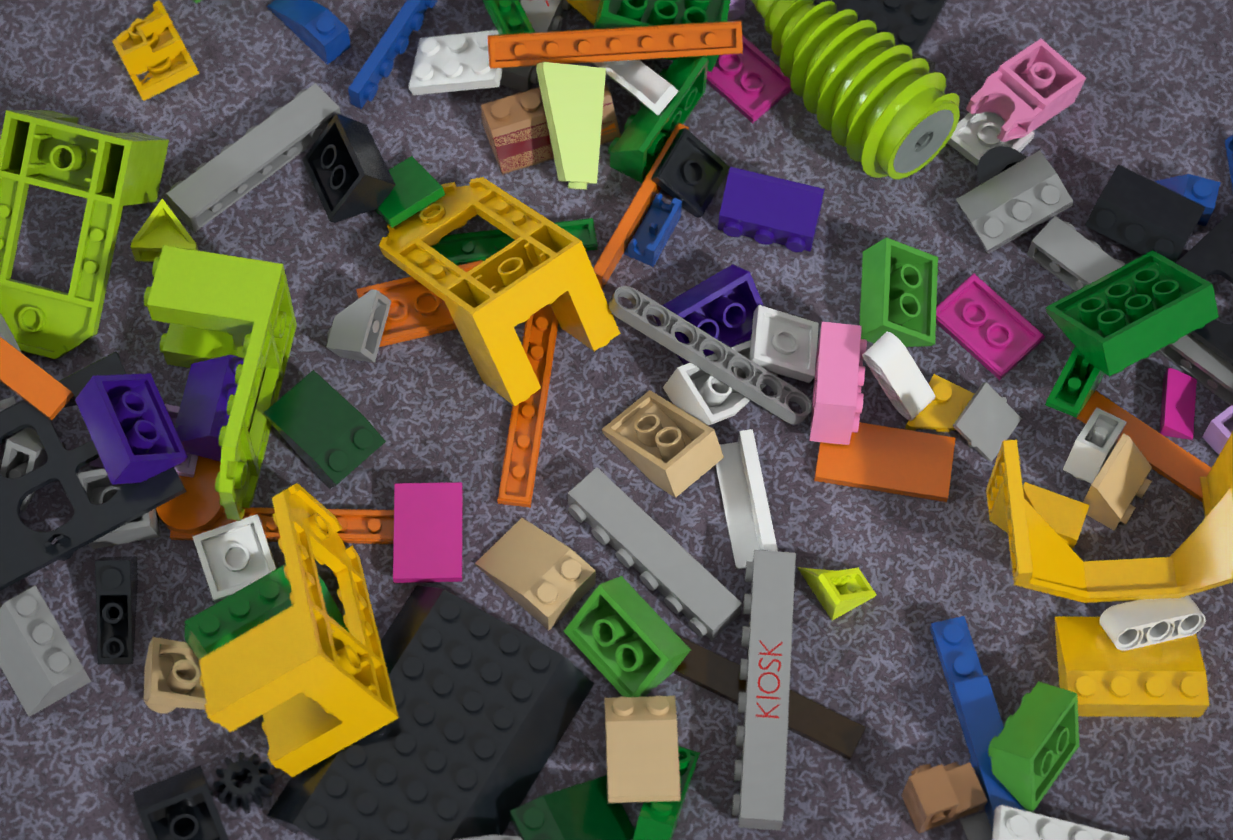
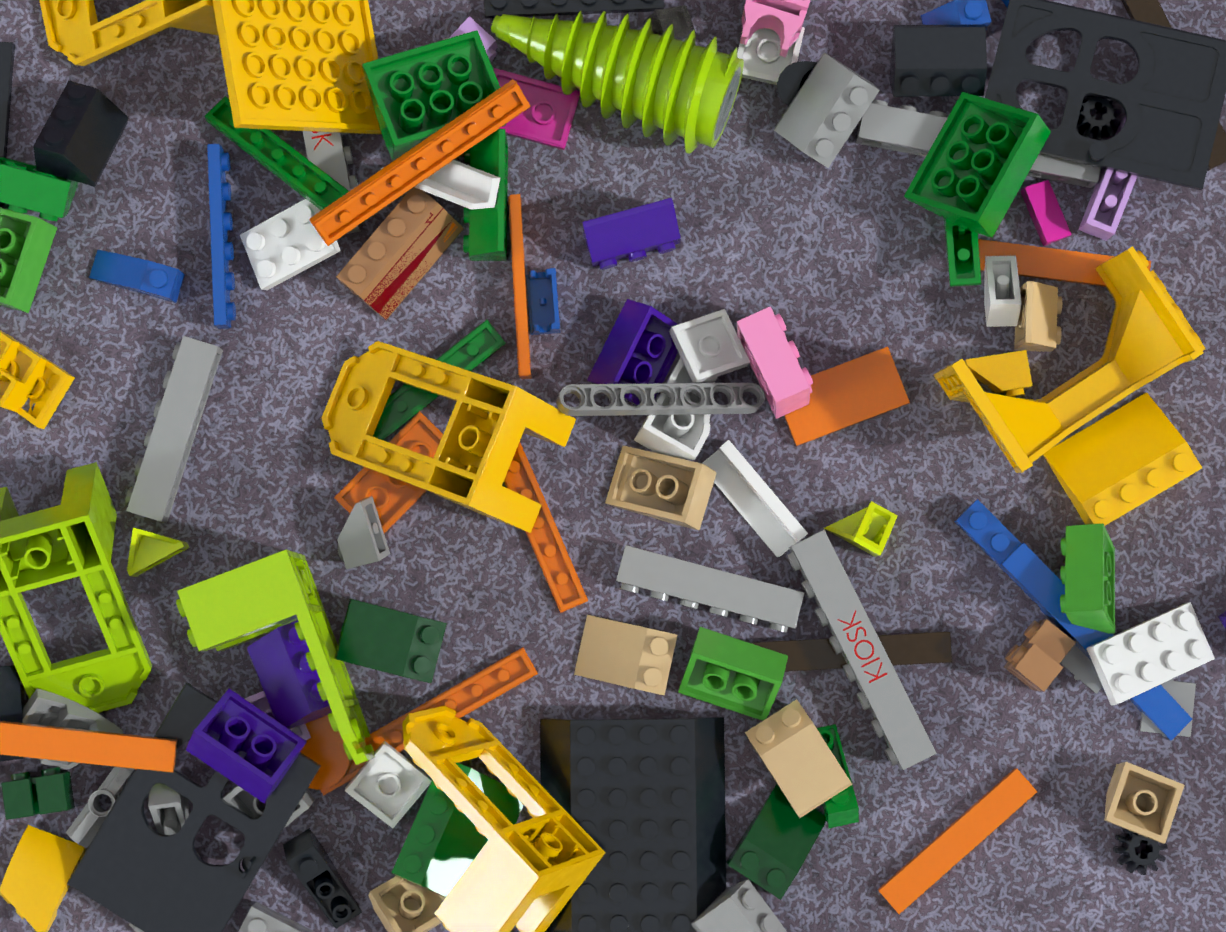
camera: 30 degrees left, 20 degrees up
(348, 169) = (262, 399): black slope -> none
(411, 194) = (317, 390): green tile -> none
(428, 532) = (524, 674): dark pink tile -> none
(574, 119) = (422, 244): yellowish green slope -> none
(690, 172) = (544, 233): black tile -> none
(898, 293) = (776, 248): bright green slope -> none
(899, 376) = (822, 330): white beam -> none
(944, 409) = (867, 322): yellow wing -> none
(987, 326) = (858, 229): dark pink tile -> none
(987, 421) = (905, 319): light grey piece -> none
(1151, 621) = (1122, 421): white beam -> none

